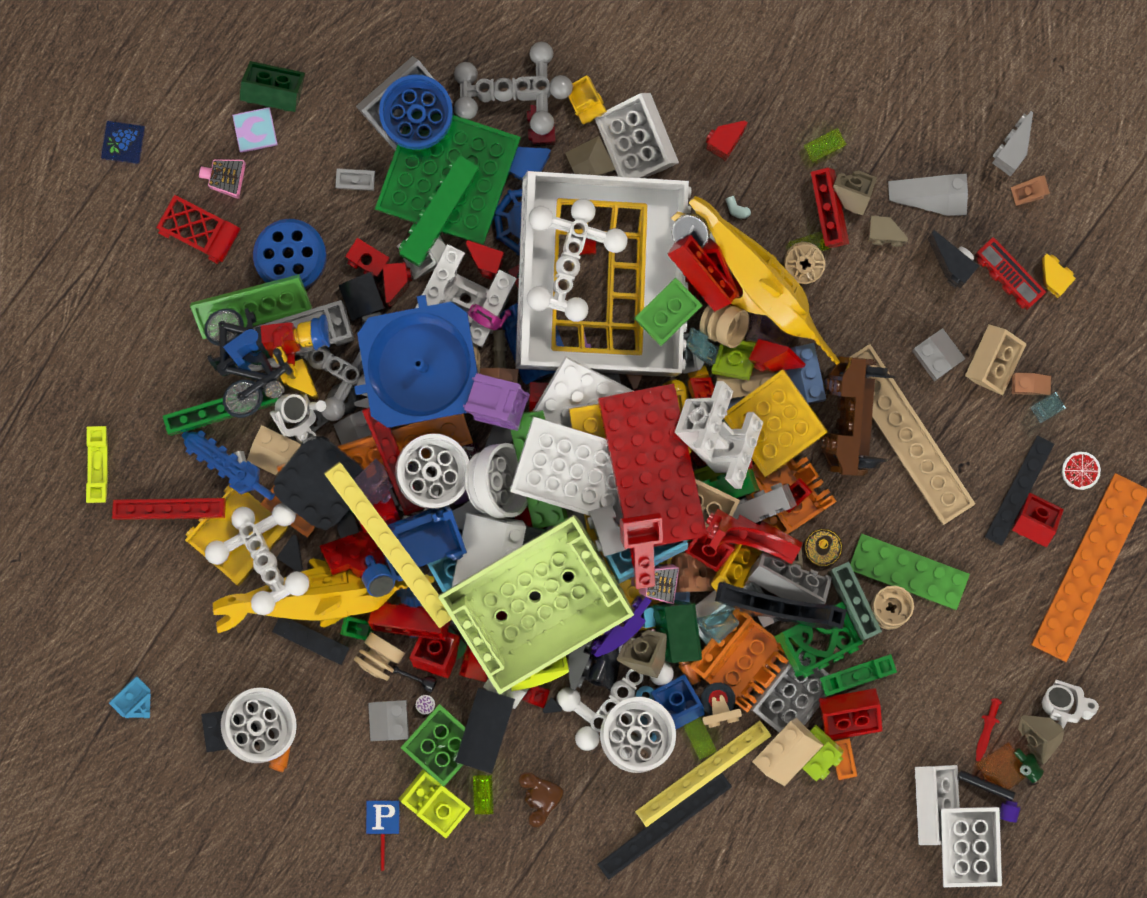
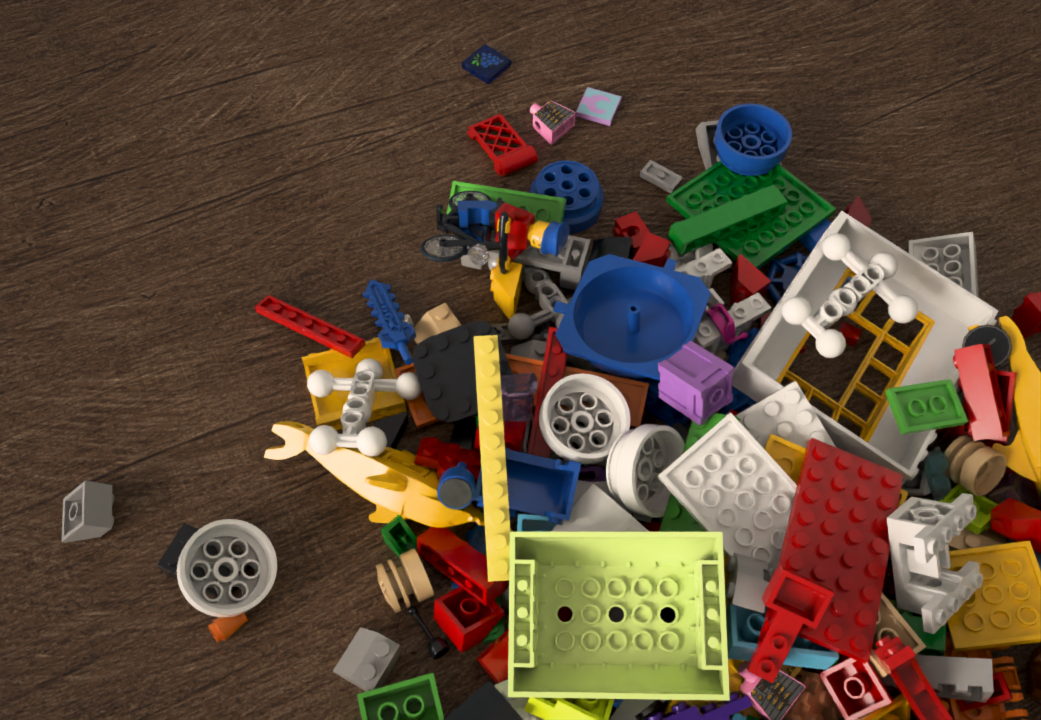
camera: 30 degrees right, 25 degrees down
(97, 464) = (280, 261): neon yellow slope -> none
(122, 748) = (87, 512): none -> light grey slope
(133, 700) = (138, 474): dark azure slope -> none
(203, 415) = (419, 274): green brick -> none
(271, 86) = (631, 84): dark green slope -> none
(292, 409) = (482, 303): white piece -> none
(311, 640) = (350, 526): black plate -> none
(425, 704) = (417, 666): white tile -> none
(541, 122) = (864, 184): light grey piece -> none
(586, 100) = (909, 221): yellow piece -> none

